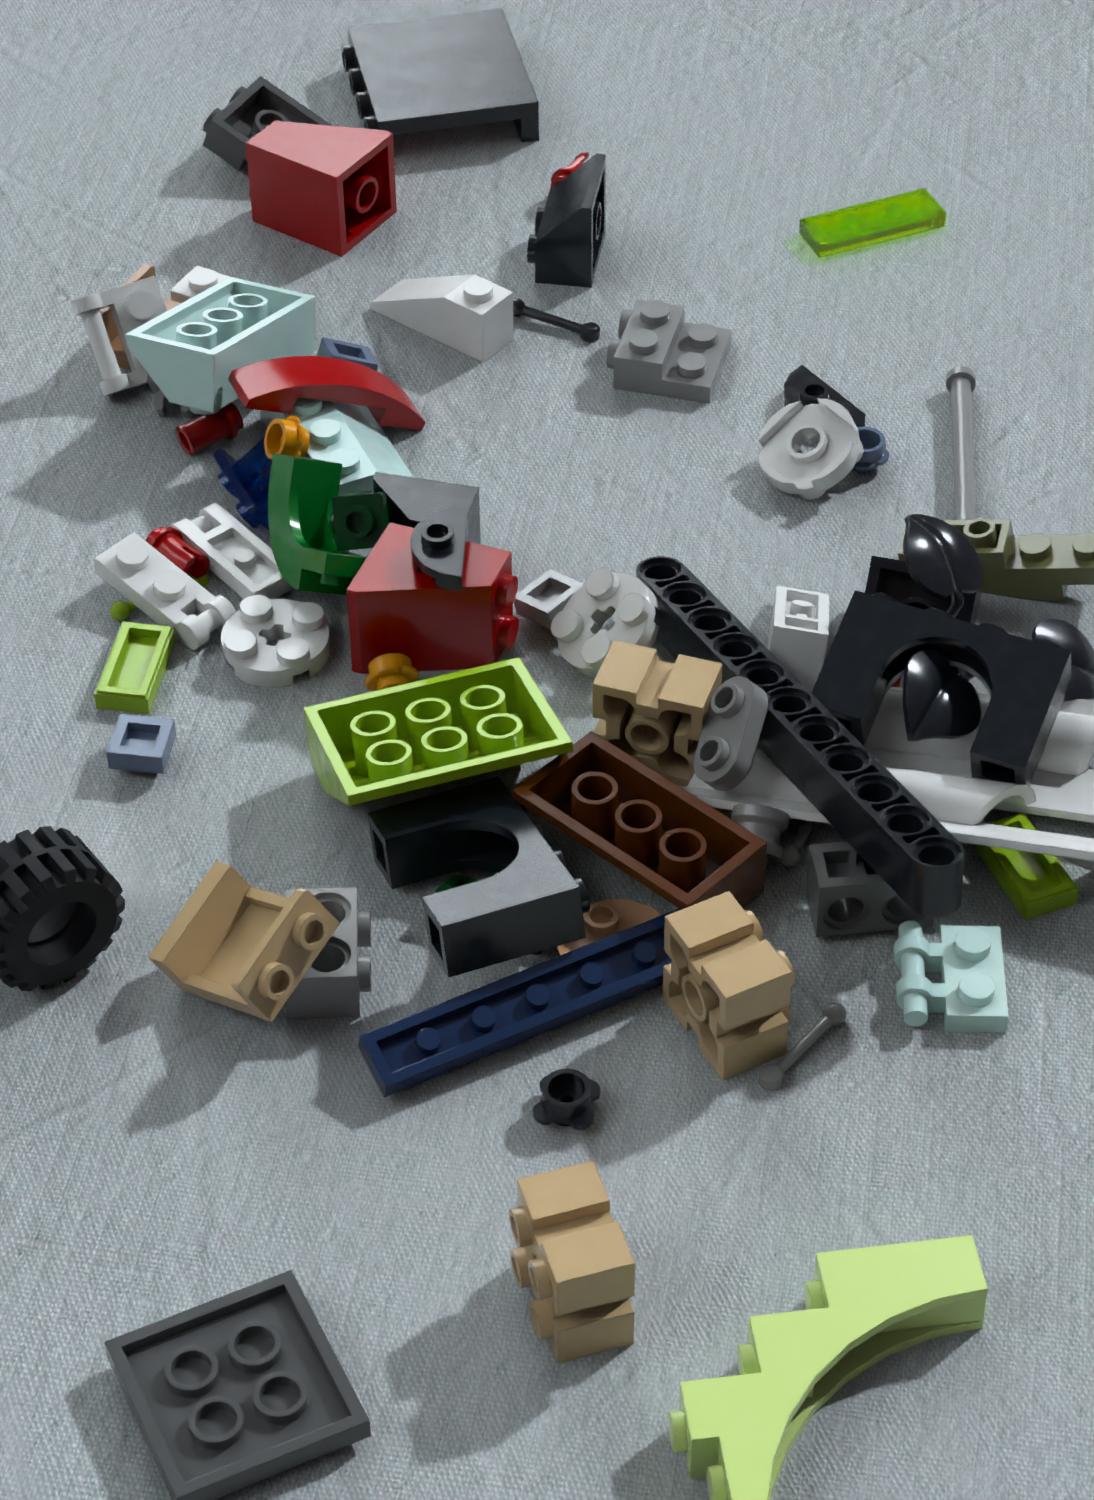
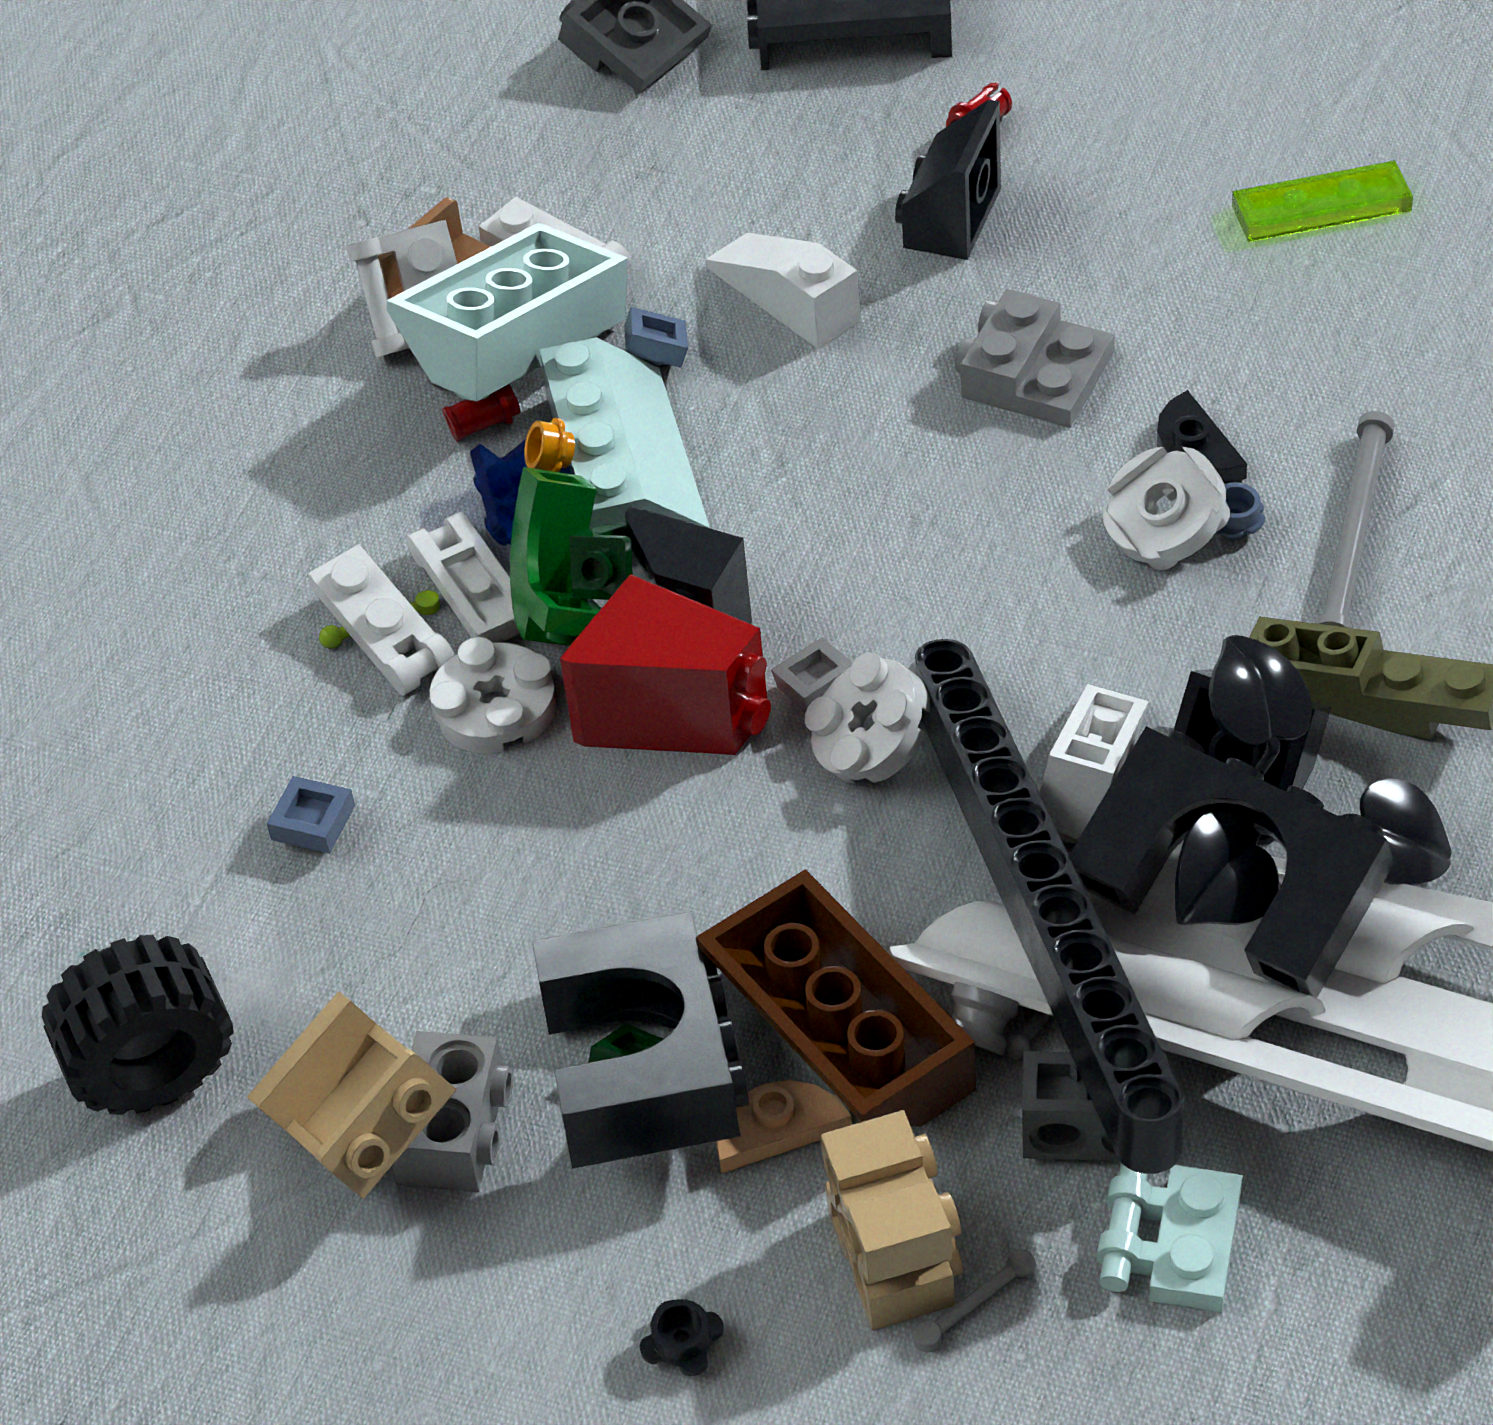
camera: 15 degrees right, 5 degrees up
(135, 667) = (330, 712): lime tile -> none
(171, 545) = (401, 565): red pin -> none
(278, 383) = (551, 372): red slope -> none
(322, 182) = (676, 103): red slope -> none
(390, 671) = (611, 759): light orange plate -> none
(431, 732) = (626, 850): lime slope -> none
(441, 546) = (677, 615): plate -> none
(516, 1007) = (648, 1210): dark blue plate -> none
(589, 331) = (949, 319): black hinge -> none
(654, 706) = (892, 847): tan brick -> none
(730, 733) = (964, 893): light grey plate -> none
(1030, 879) = (1299, 1122): lime tile -> none

